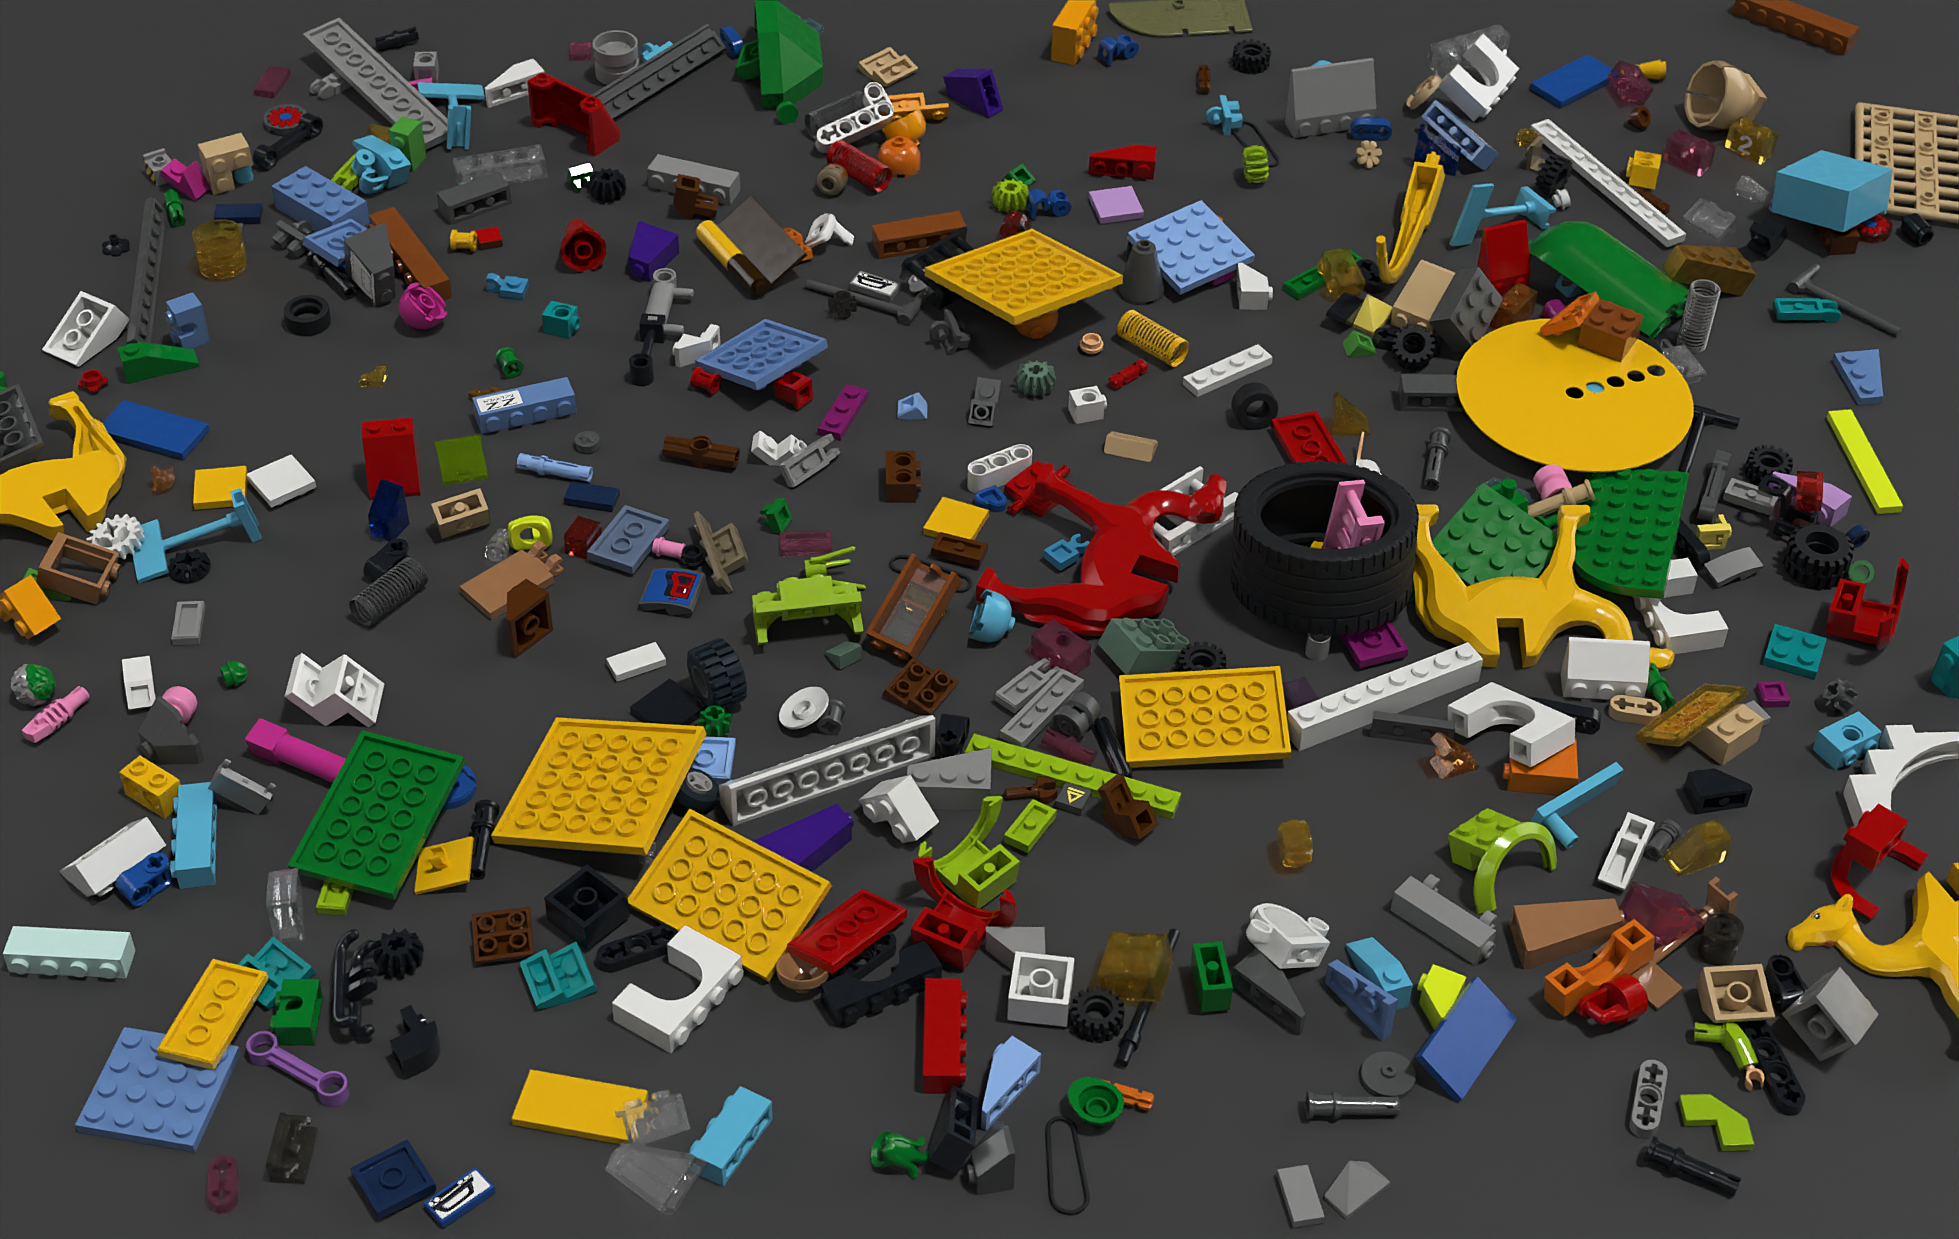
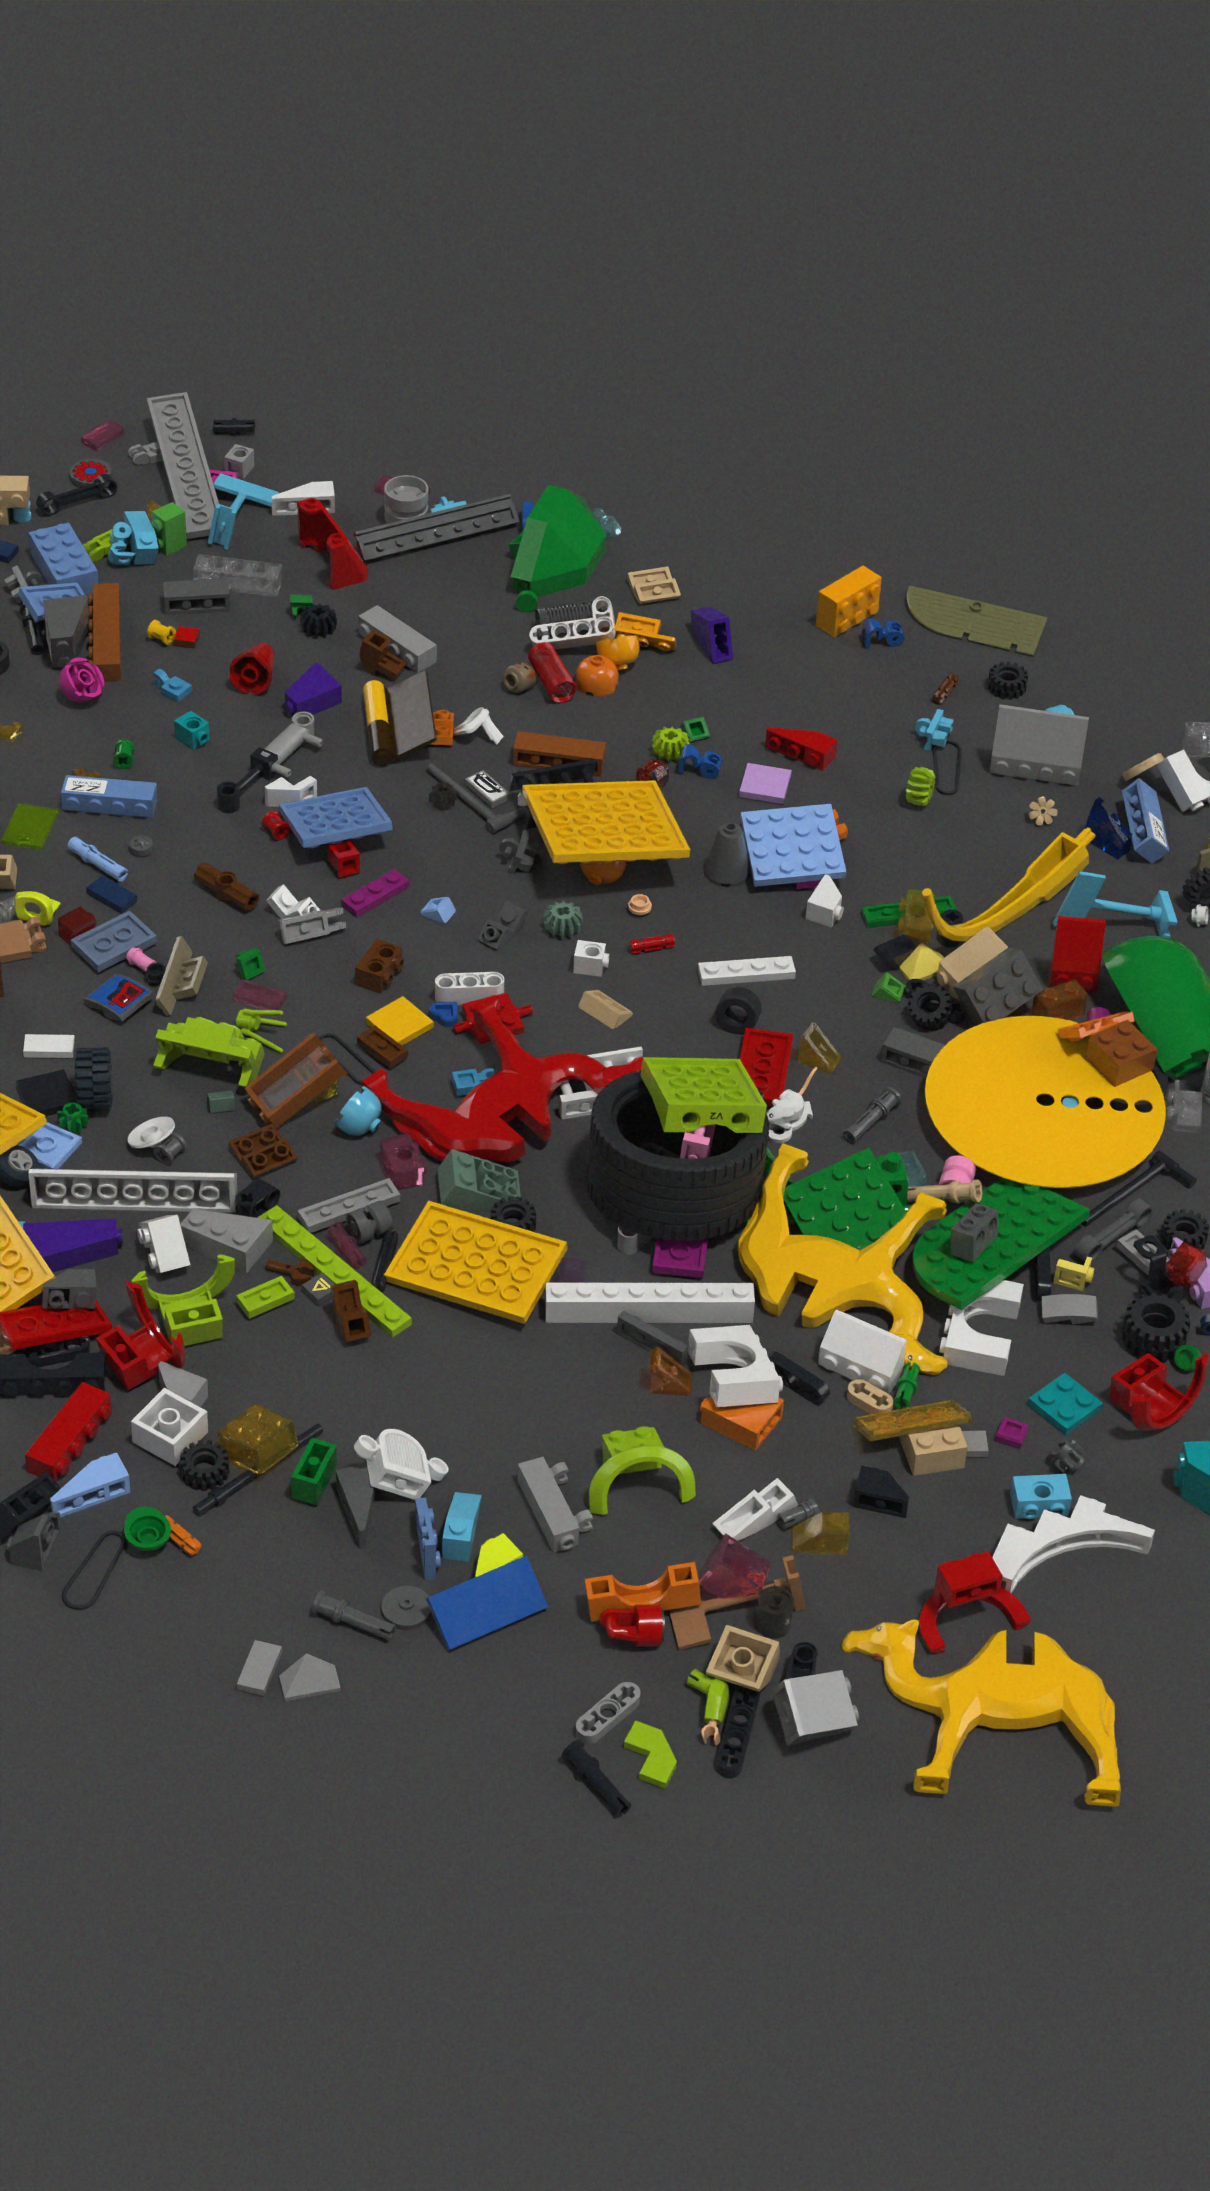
camera: 25 degrees right, 0 degrees up
(849, 890) = (71, 1290): none -> dark grey slope
(1025, 685) = (350, 1180): light grey hinge -> none
(1137, 321) = (697, 919): yellow piece -> none
(1295, 843) = (468, 1393): clear yellow gear -> none
(1337, 479) = (703, 1093): none -> lime piece
(1371, 129) = (1066, 787): blue beam -> none
(1551, 813) = (744, 1450): medium azure piece -> none
(1562, 928) = (643, 1550): medium nougat slope -> none
(1627, 525) = (974, 1232): none -> dark grey brick

